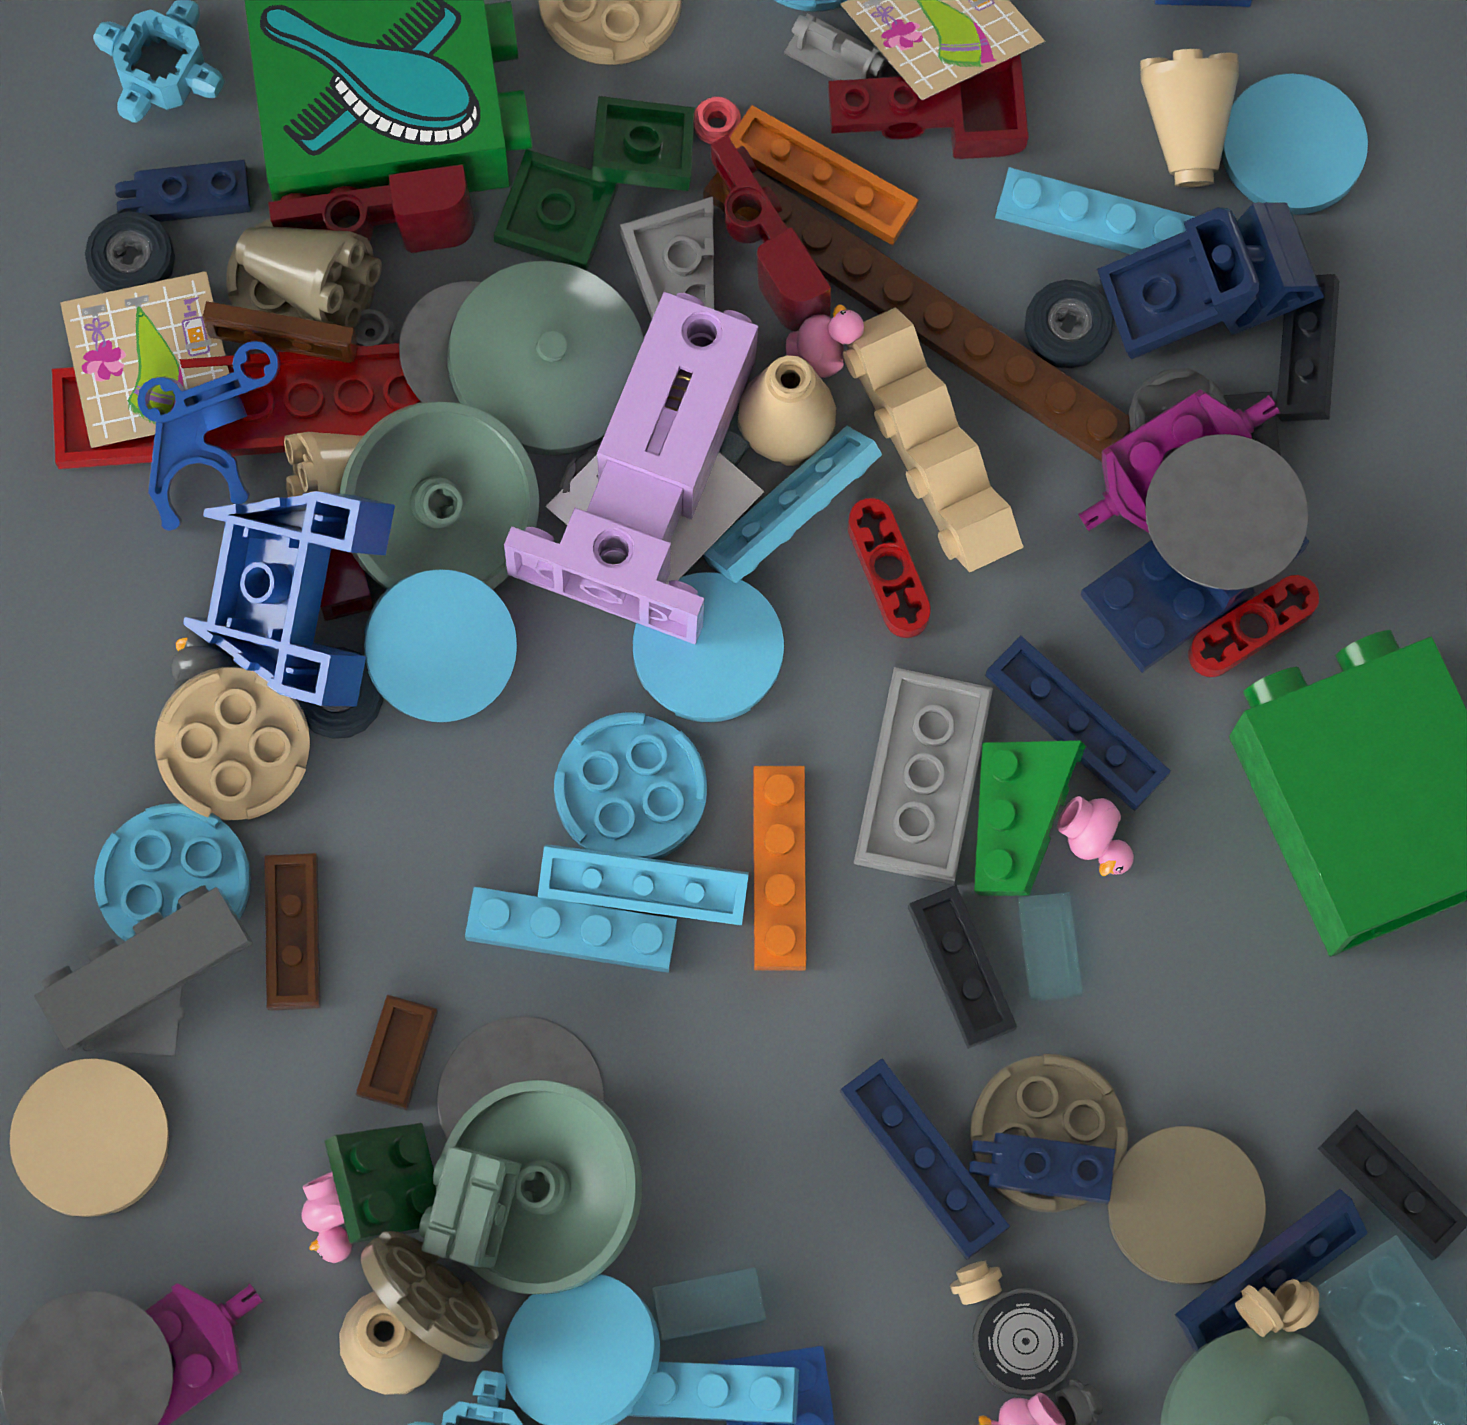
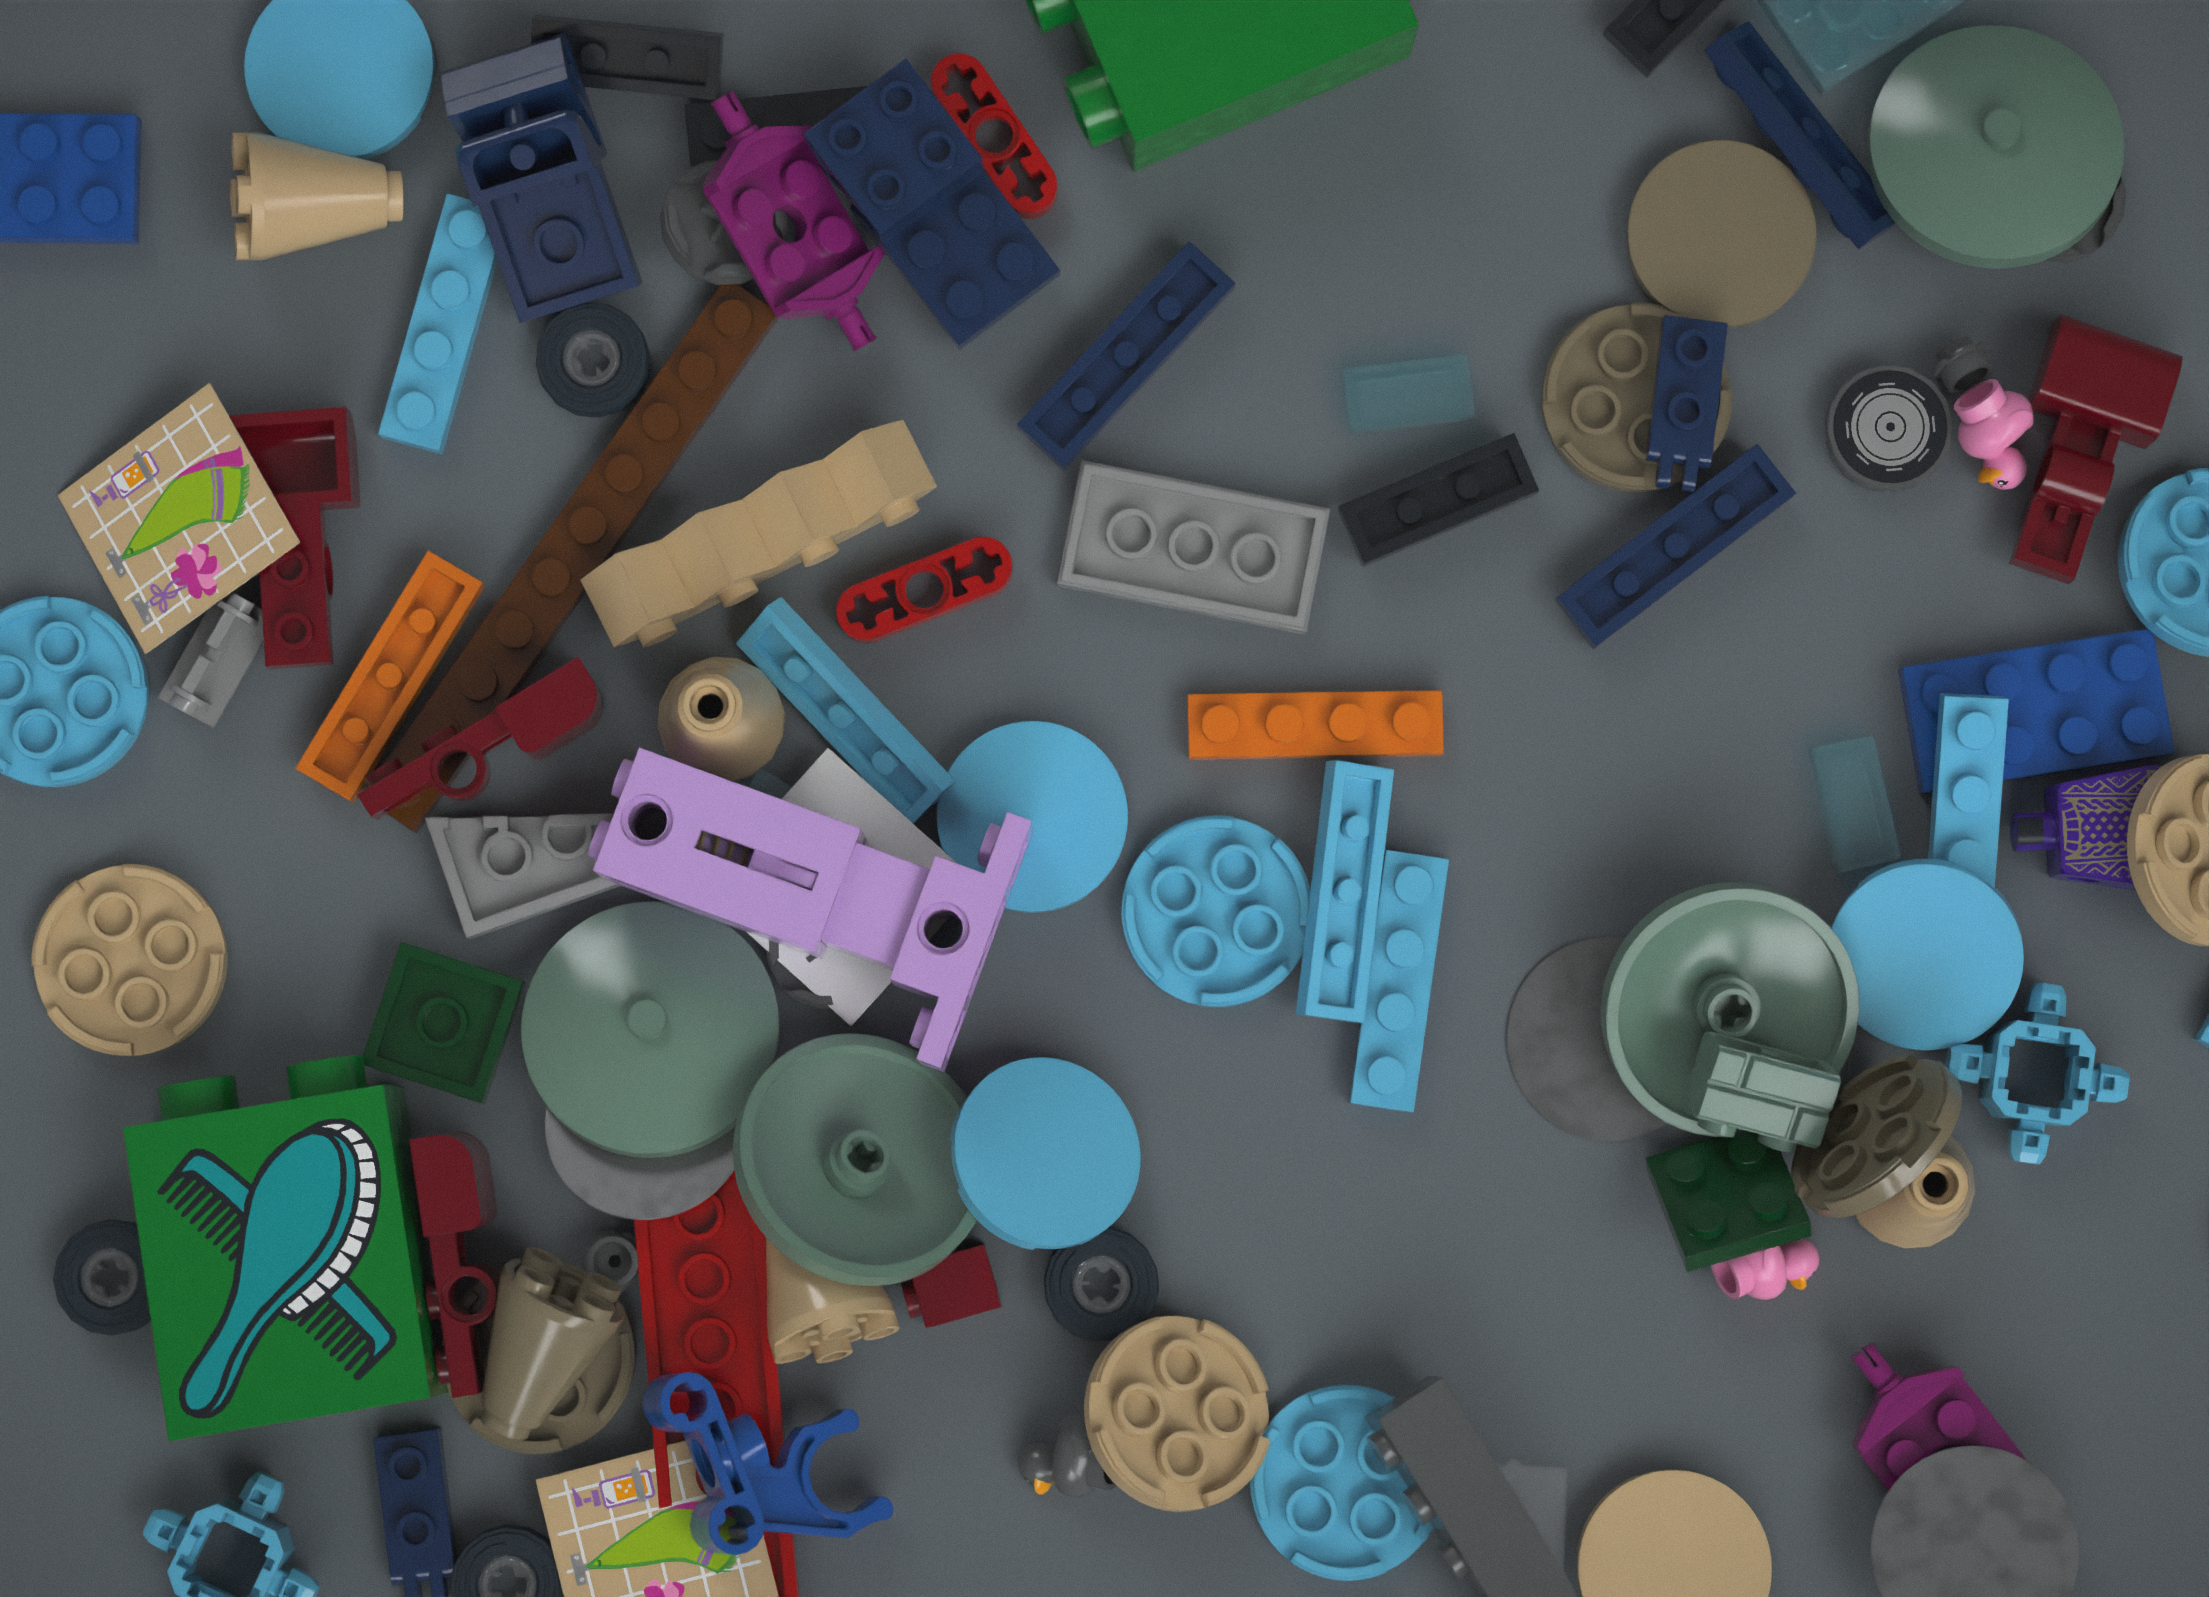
camera: 90 degrees left, 10 degrees up
(274, 584) = (985, 1364): blue wedge -> none
(280, 331) = (630, 1375): reddish brown tile -> none
(292, 932) = (1408, 1328): reddish brown tile -> none
(396, 1052) = (1557, 1192): reddish brown tile -> none
(643, 143) = (352, 909): dark green plate -> none
(715, 108) = (295, 806): coral plate -> none
(822, 339) = (629, 674): bright pink animal -> none
(976, 1282) = (1823, 483): tan plate -> none
(1017, 807) = (1239, 430): green wing -> none
(1091, 831) = (1270, 338): bright pink animal -> none
(1226, 512) = (872, 158): flat silver sticker -> none
(1260, 1310) = (1857, 146): tan plate -> none
(1299, 1304) = (1843, 107): tan plate -> none

